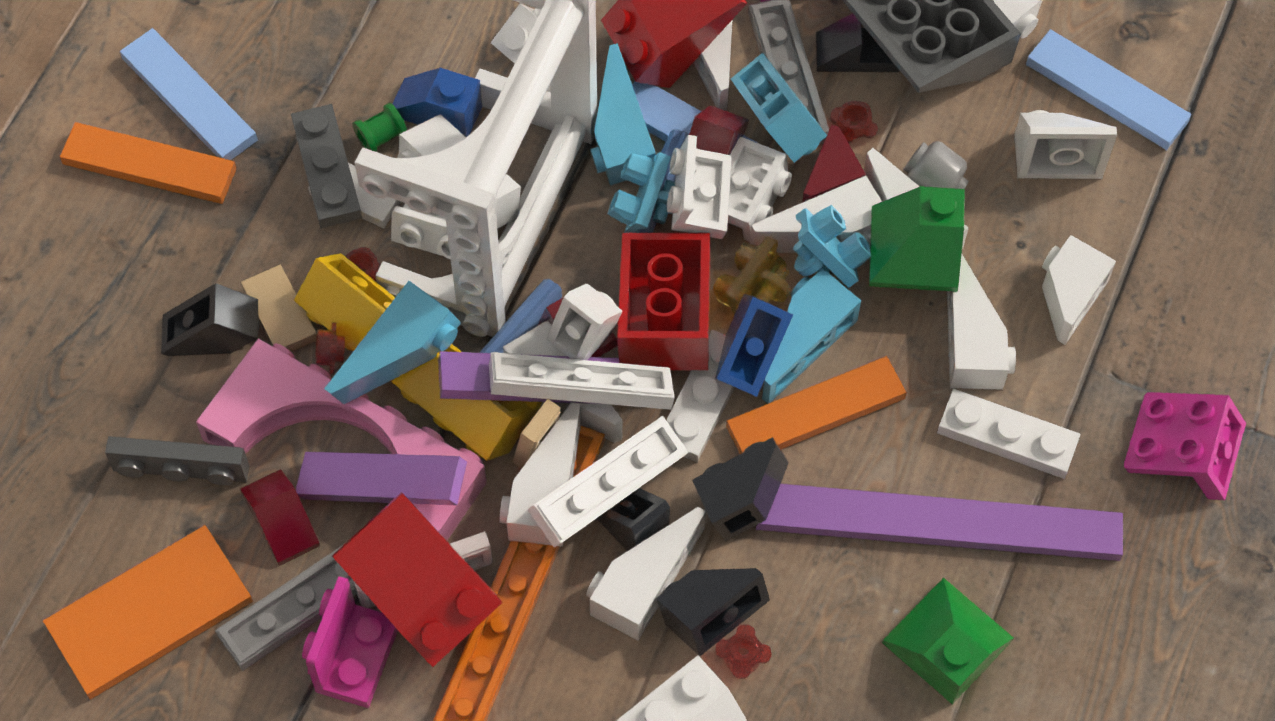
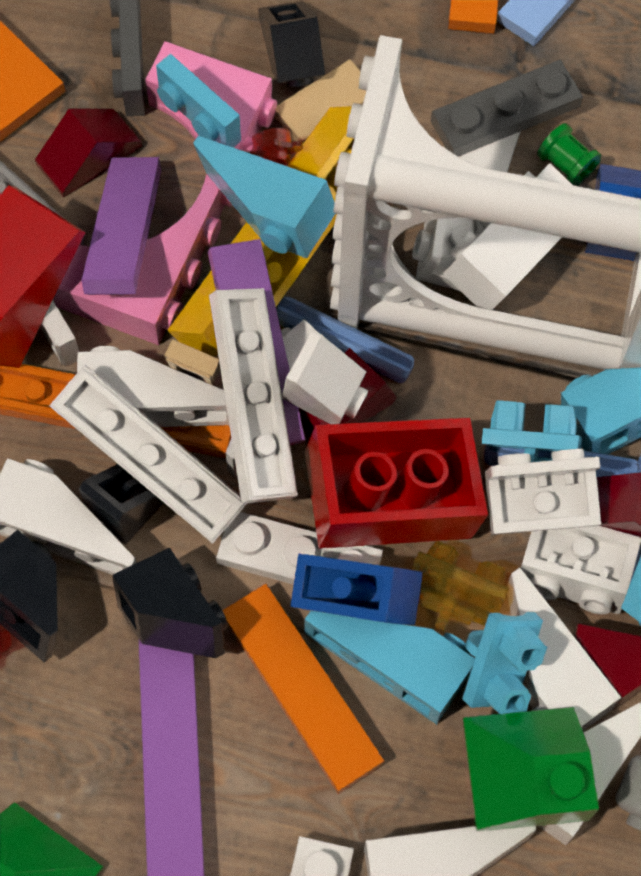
camera: 80 degrees right, 5 degrees up
(280, 392) = (205, 109): none -> medium azure plate

